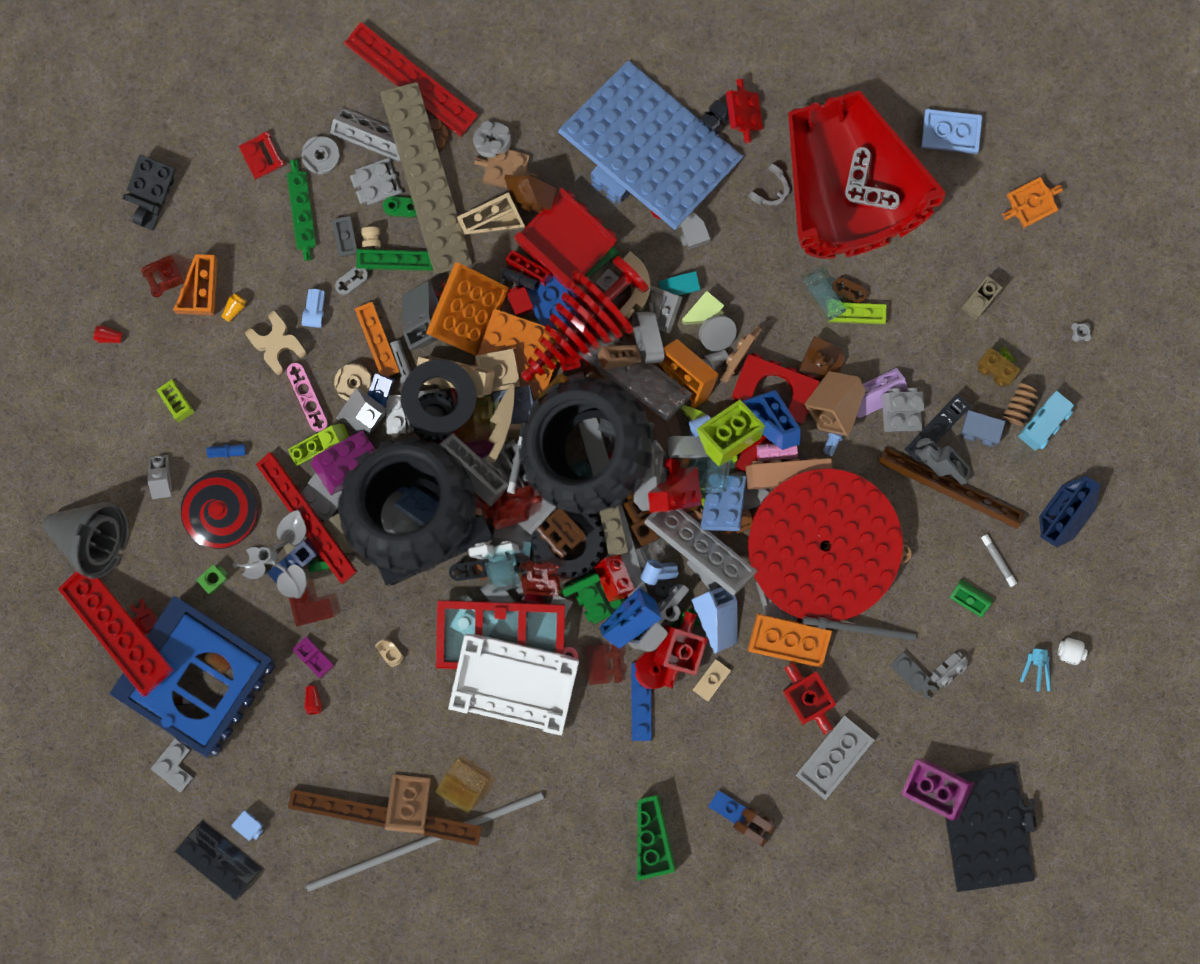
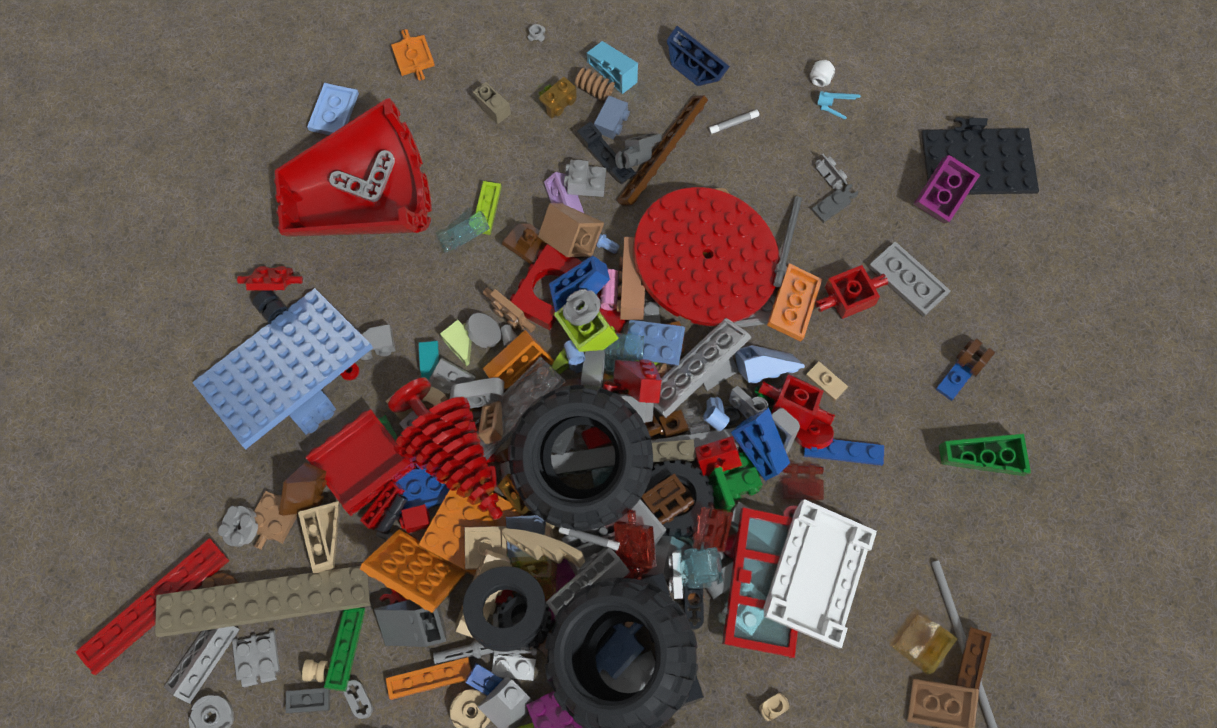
camera: 80 degrees left, 15 degrees down
(401, 207) = (289, 633): green plate -> none
(741, 434) = (587, 313): none -> light grey tile
(778, 172) = (360, 279): light grey piece -> none
(847, 294) = (460, 209): reddish brown beam -> none
(971, 598) = (766, 147): green slope -> none

